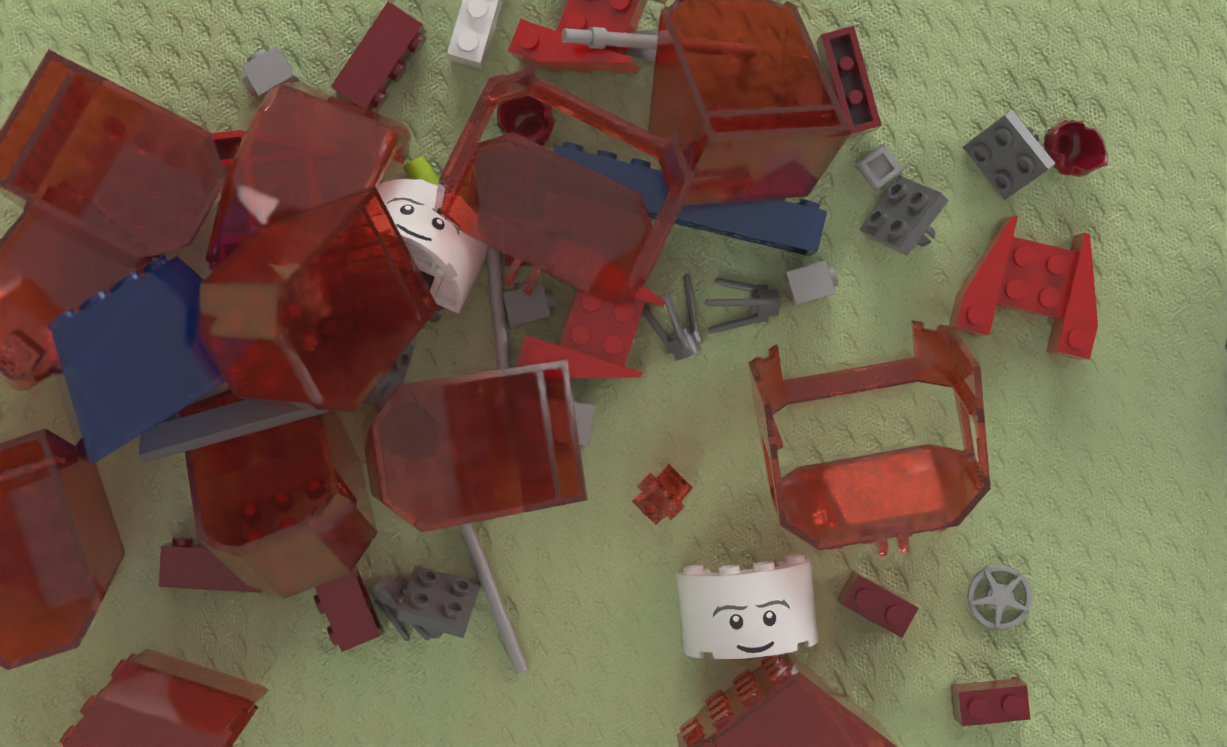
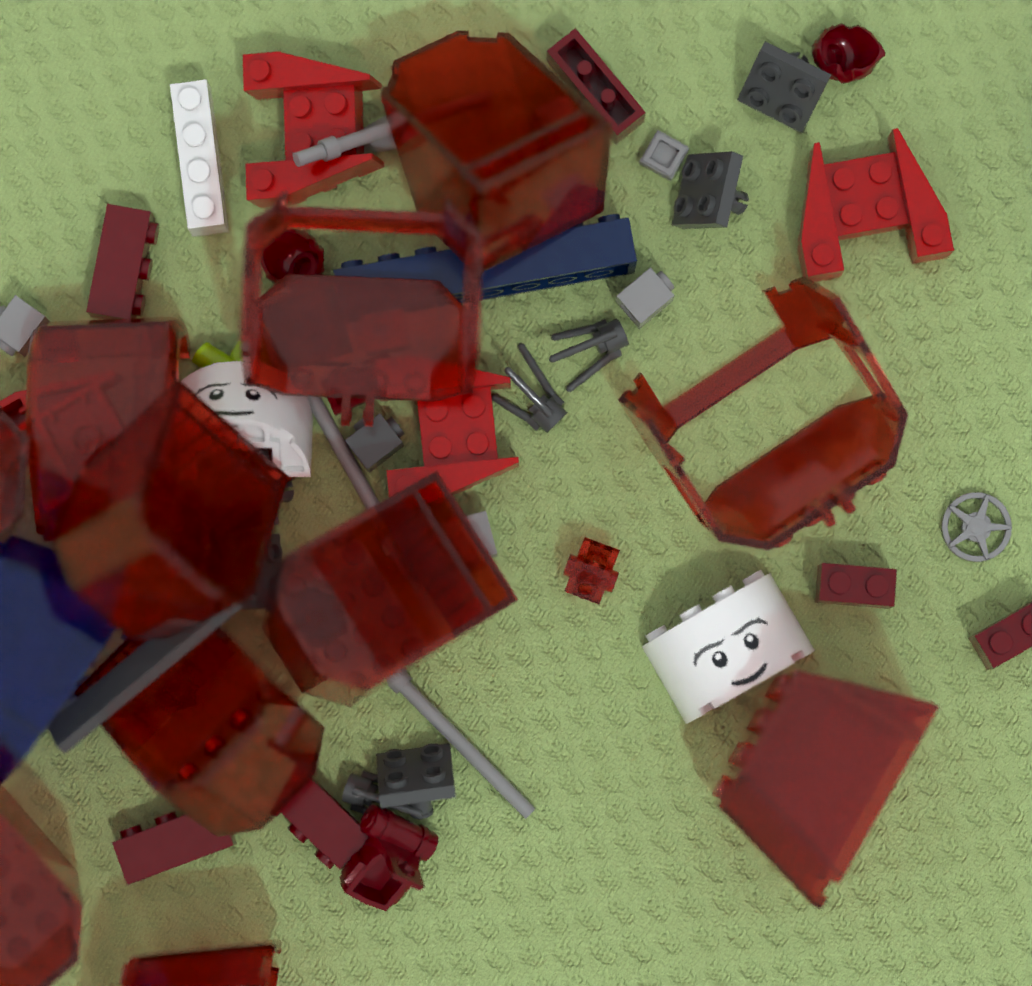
camera: 20 degrees left, 5 degrees down
(386, 660) = (388, 859): none -> dark red piece

